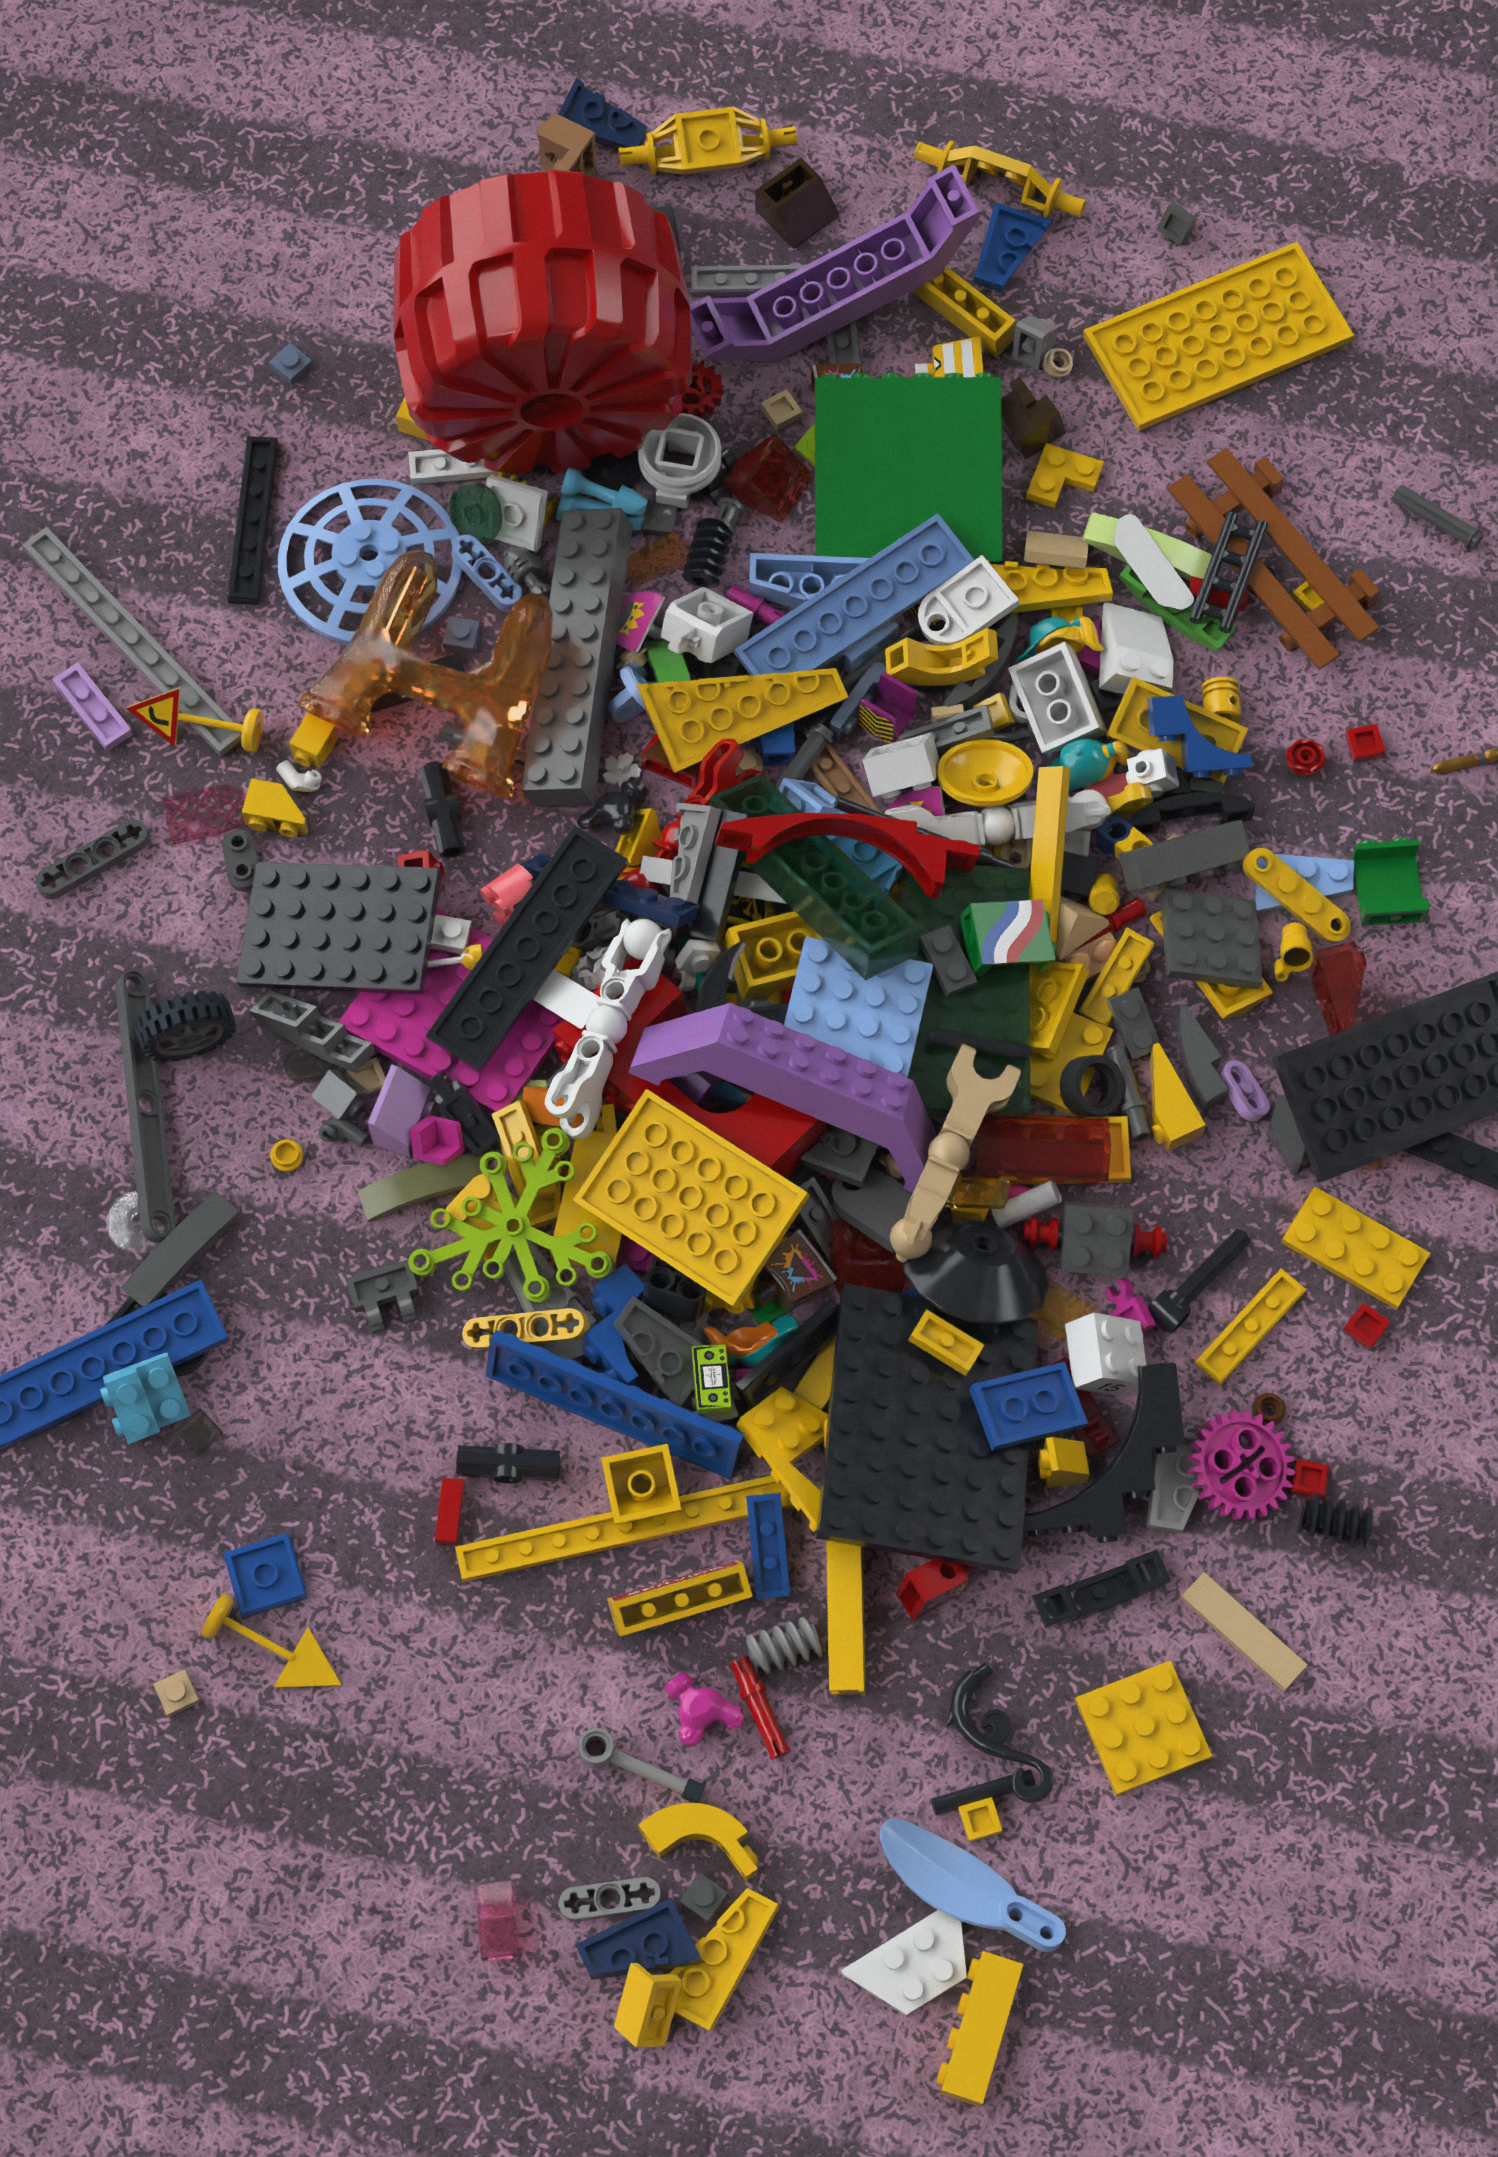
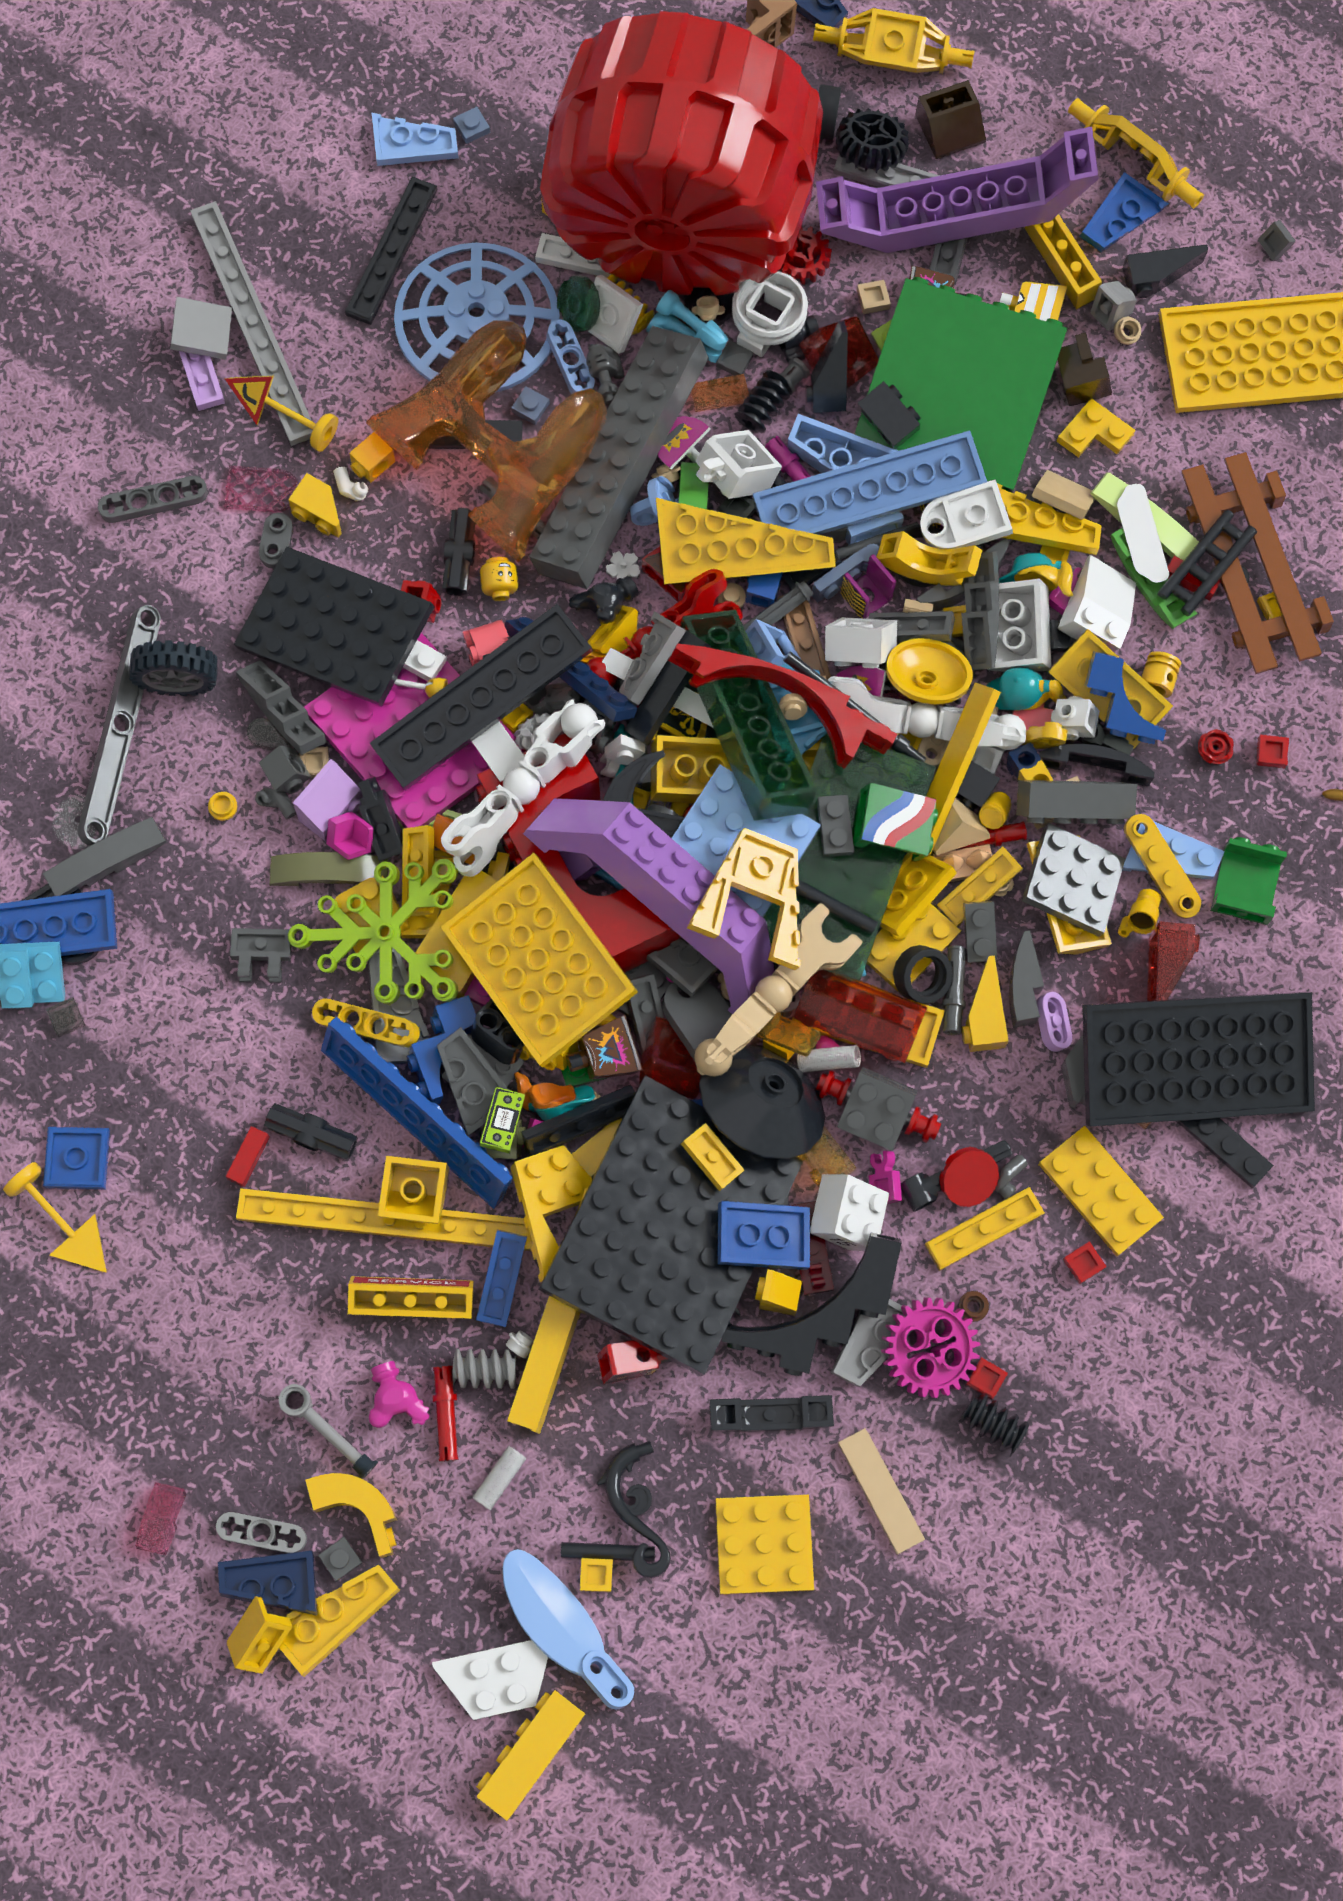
camera: 15 degrees right, 5 degrees up
(80, 663) = (201, 328): none -> light grey tile
(227, 403) = (409, 142): none -> light blue wing
(495, 823) = (499, 578): none -> yellow head
(614, 474) = (708, 308): none -> tan plate
(721, 249) = (872, 140): none -> black gear
(768, 502) = (829, 377): none -> black slope
(812, 1607) = (520, 1343): none -> white plate
(834, 1758) = (491, 1477): none -> white piece
(847, 524) = (889, 414): none -> black brick
(861, 851) = (793, 706): none -> tan plate
(895, 1028) = (763, 870): none -> wing
(1017, 697) = (982, 613): none -> dark grey slope
(1064, 292) = (1154, 270): none -> black slope
(1216, 1277) = (969, 1176): none -> red tile
(1254, 1260) = (1006, 1175): none -> dark grey arm

